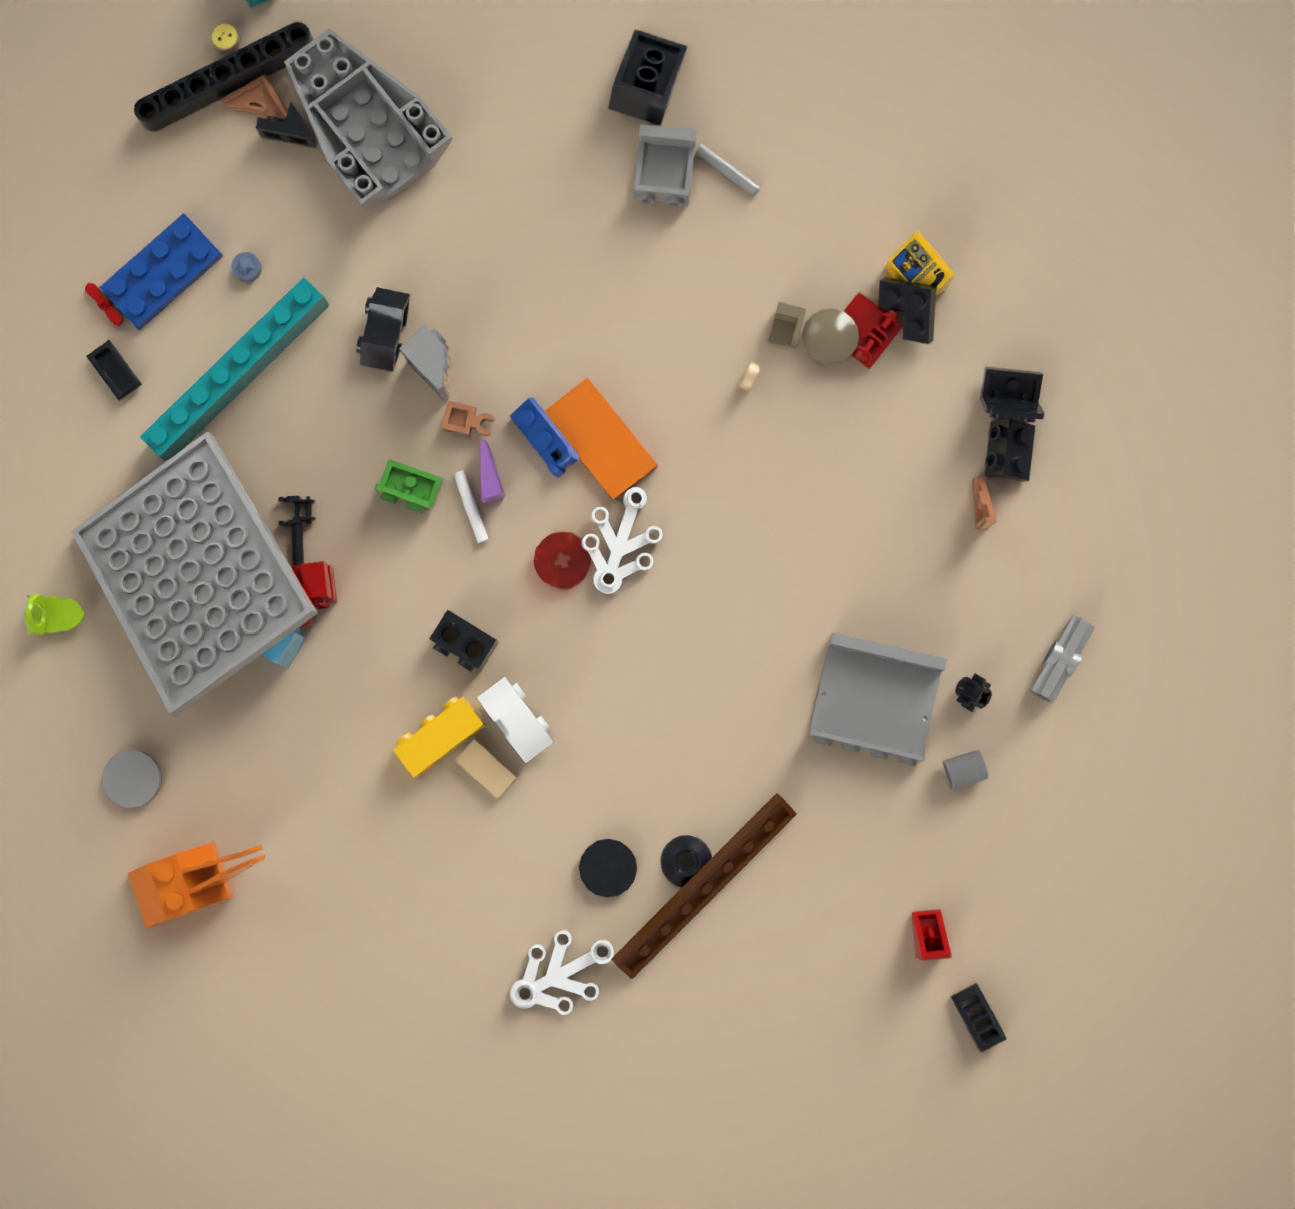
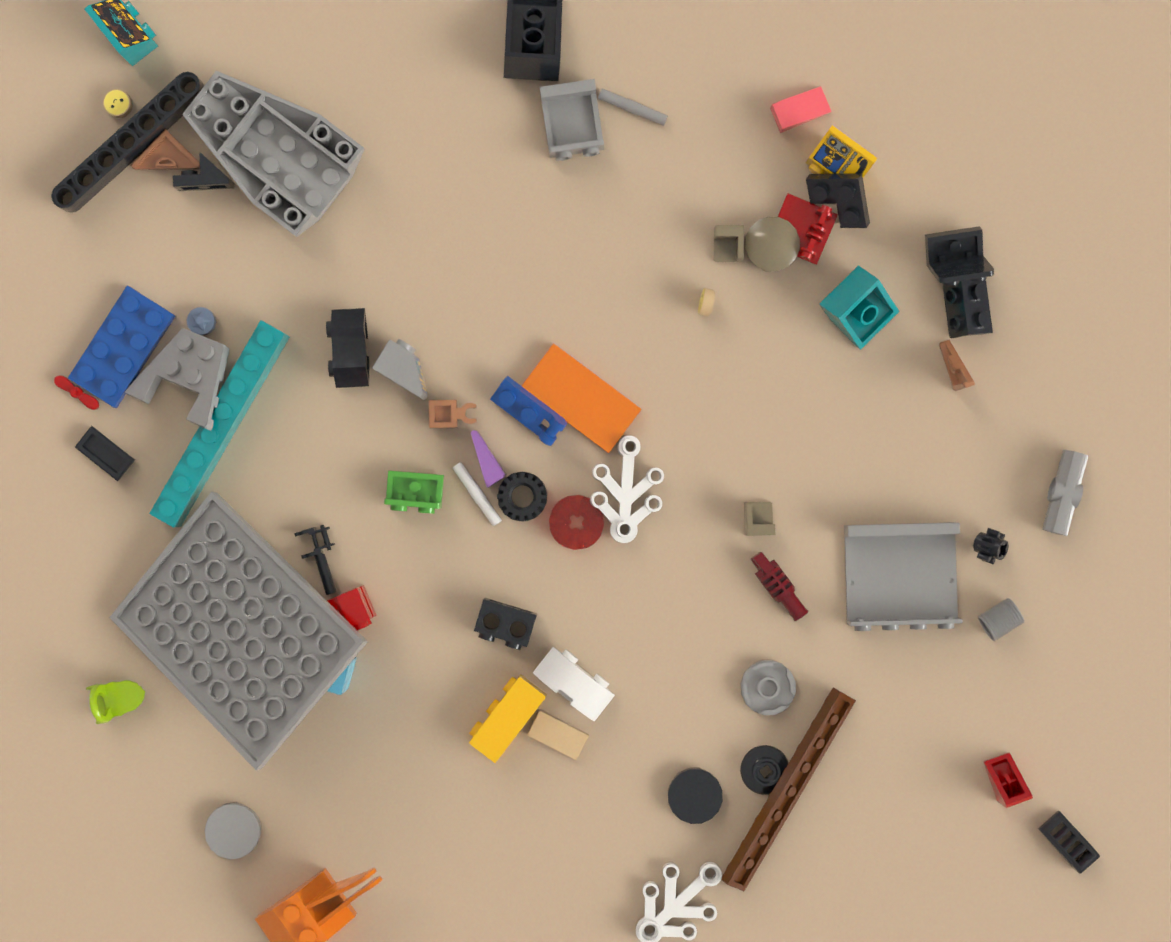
camera: 15 degrees left, 5 degrees up
(223, 303) = (189, 363): none -> light grey wing
(509, 503) = (505, 496): none -> black tyre
(711, 777) = (768, 687): none -> light grey tile
(746, 604) = (758, 519): none -> dark tan panel
(748, 676) = (778, 585): none -> dark red hinge
(892, 214) = (800, 109): none -> coral slope
(902, 420) = (859, 307): none -> teal slope

